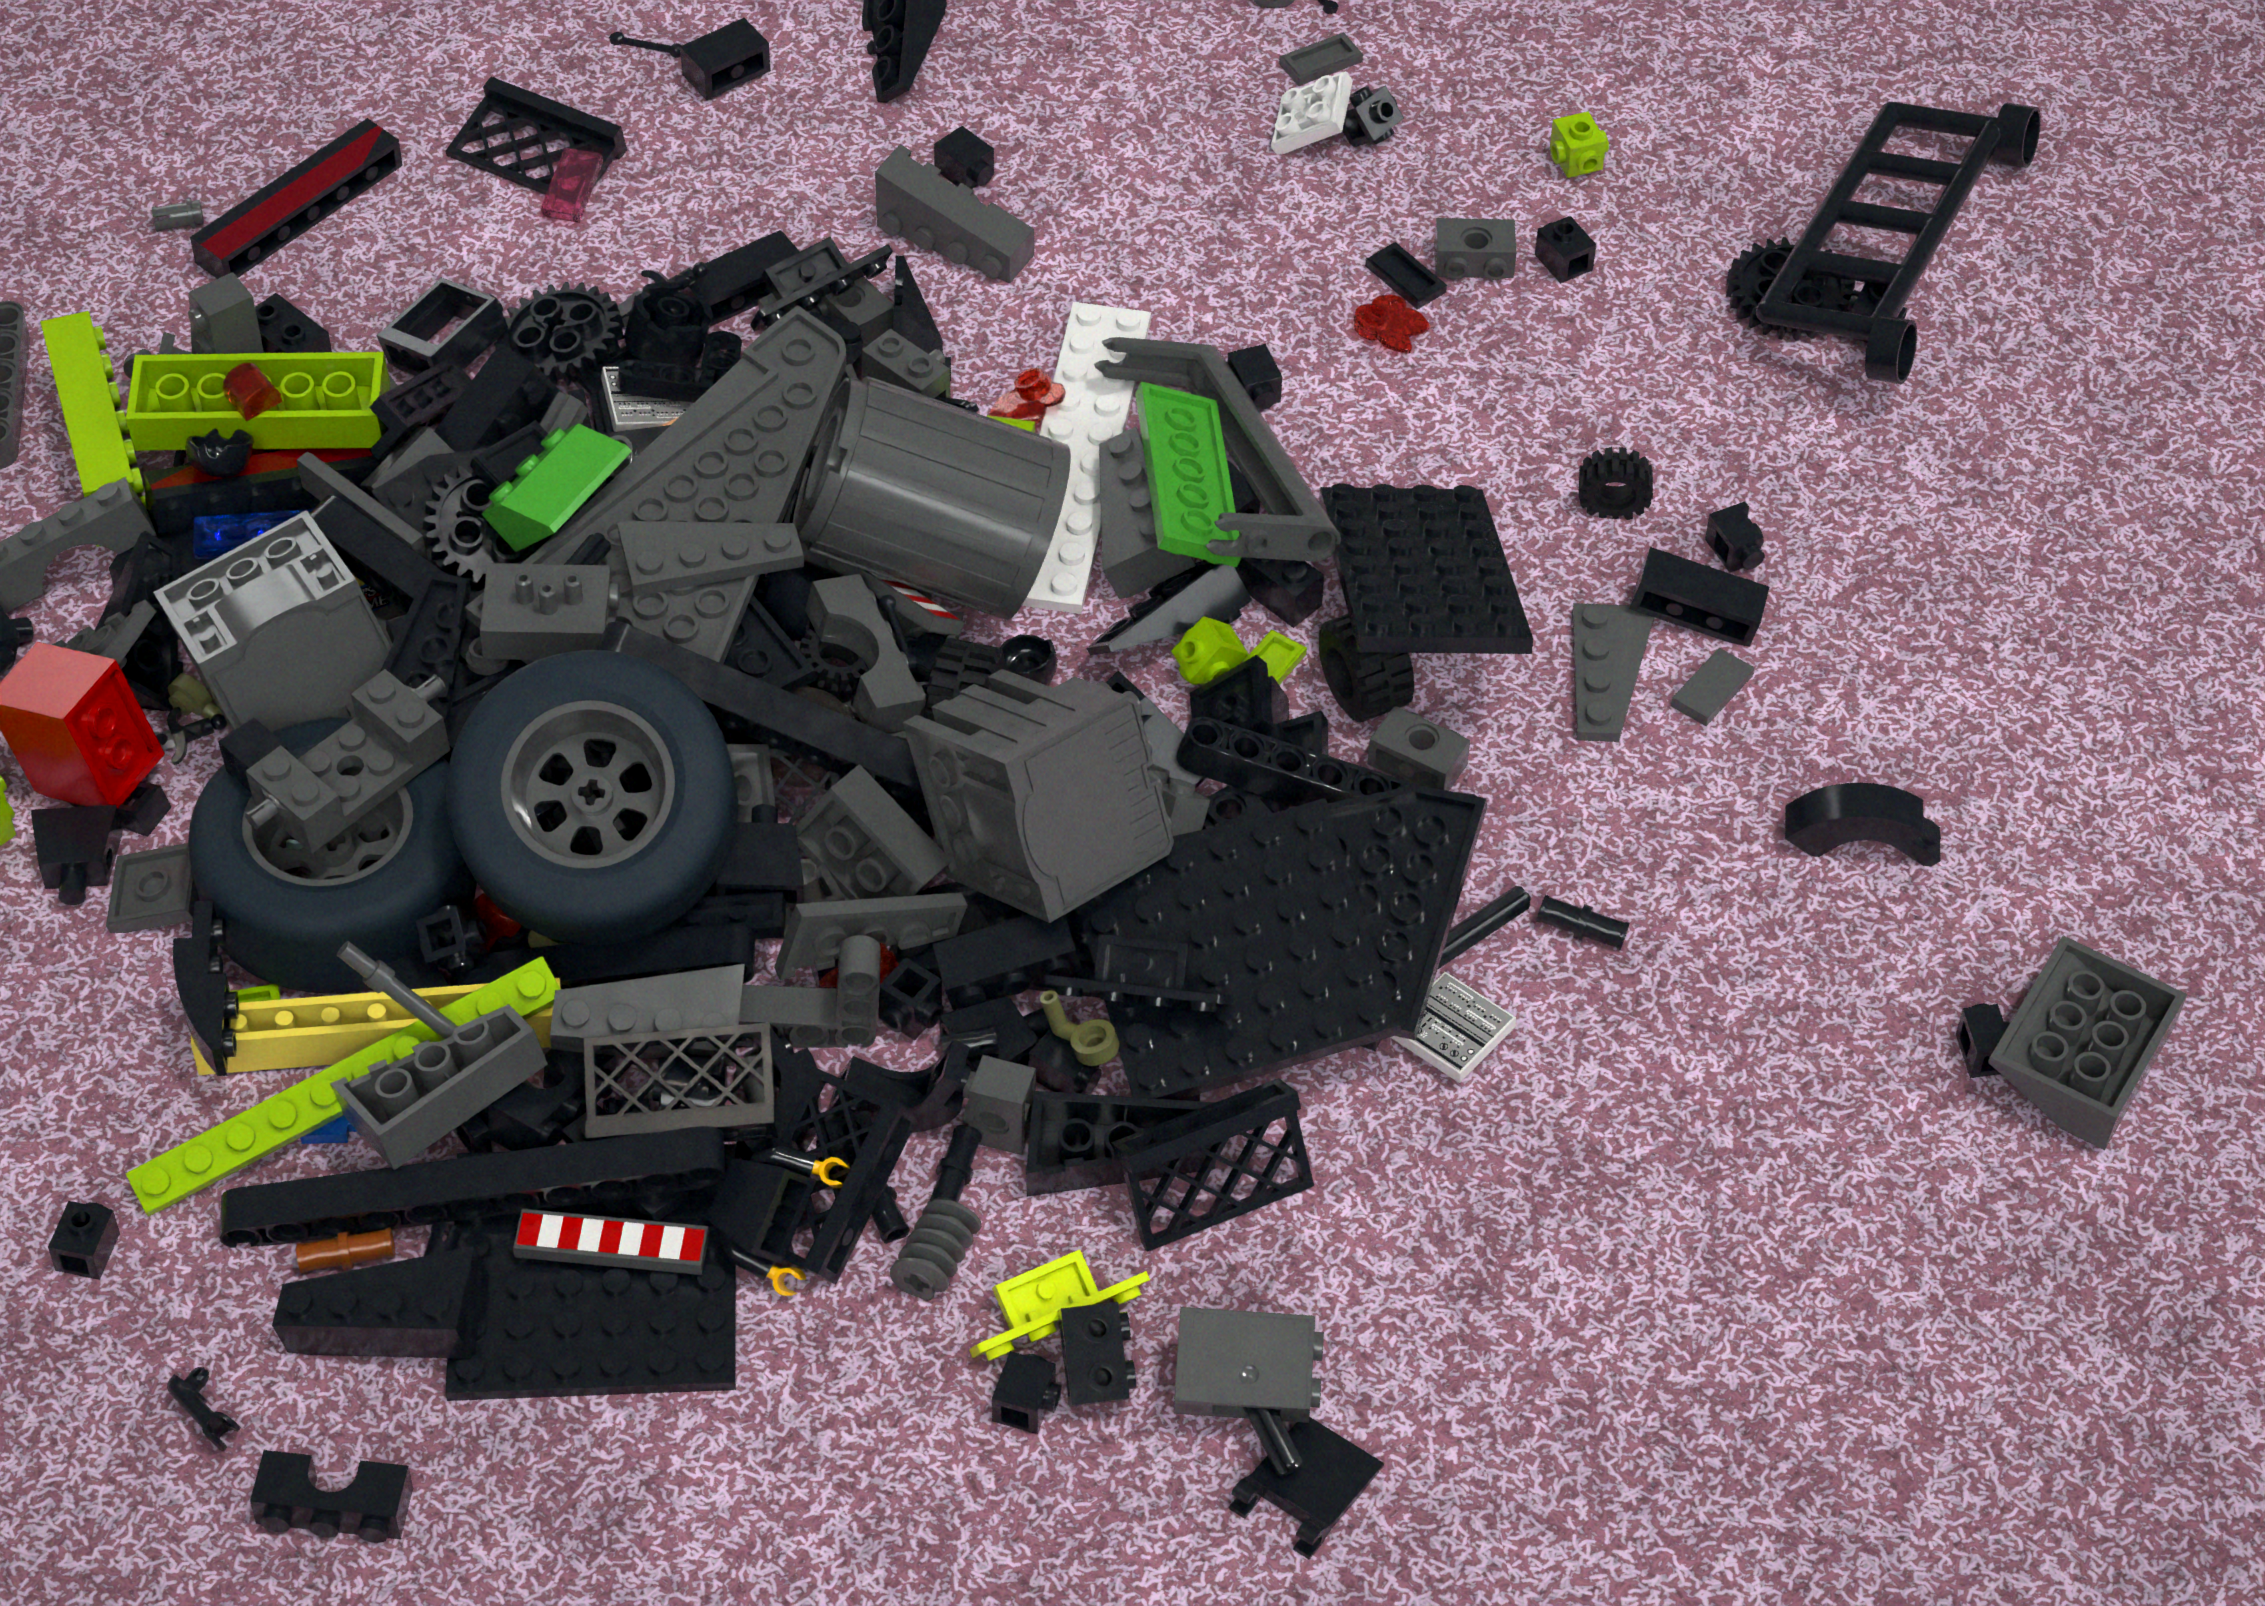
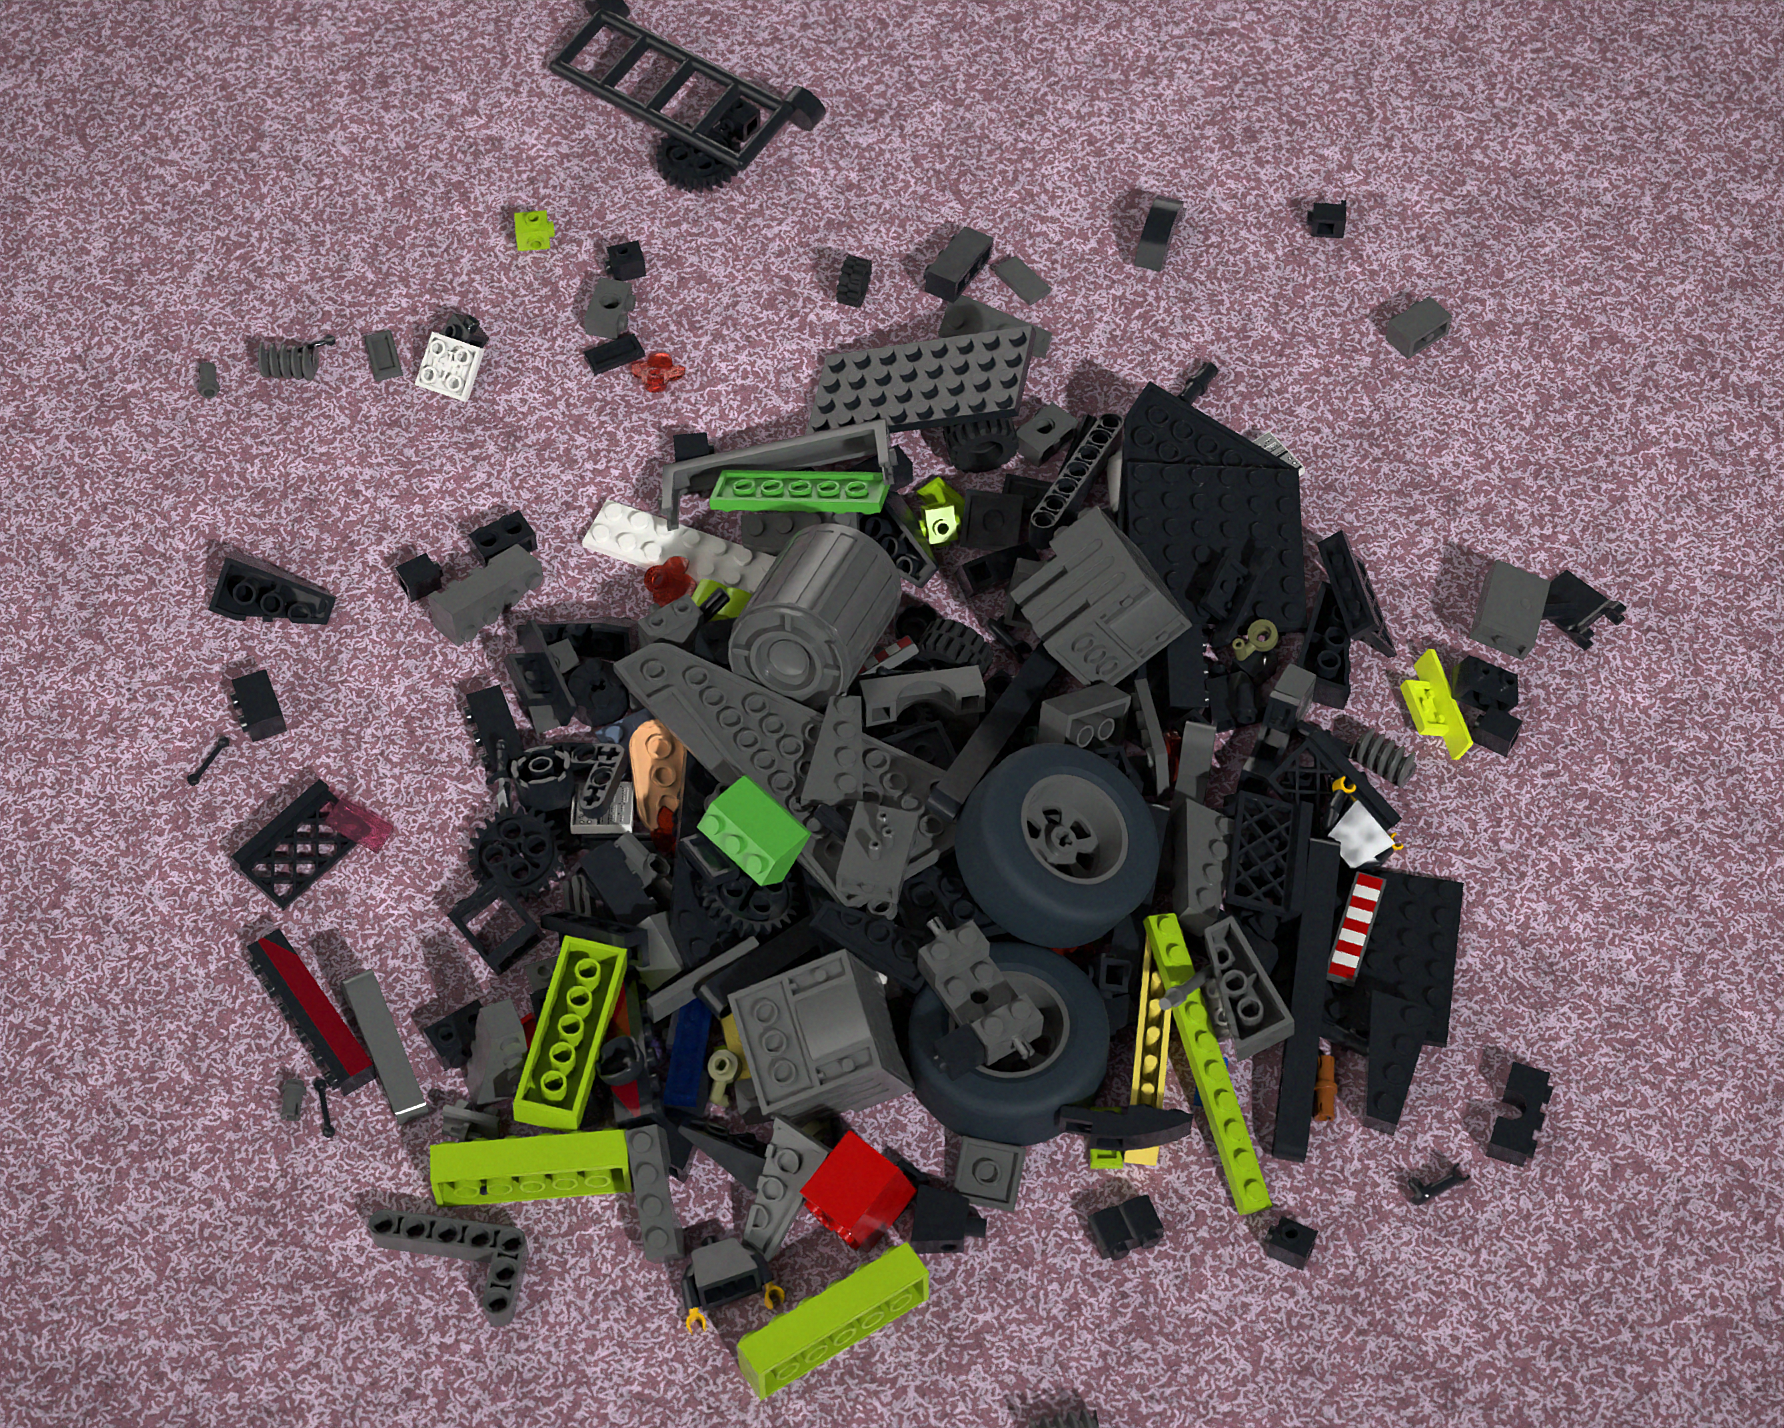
camera: 75 degrees left, 5 degrees up
(90, 1048) = (1125, 1228): none -> black brick
(143, 258) = (320, 1086): none -> black hinge
(250, 390) = (586, 1024): clear red brick -> none
(257, 242) = (384, 1045): none -> dark grey beam
(1057, 226) = (501, 535): none -> black brick
(1735, 538) = (910, 237): black brick -> none
(1805, 1190) = (1418, 327): none -> dark grey brick
(2087, 1039) = (1349, 167): dark grey slope -> none

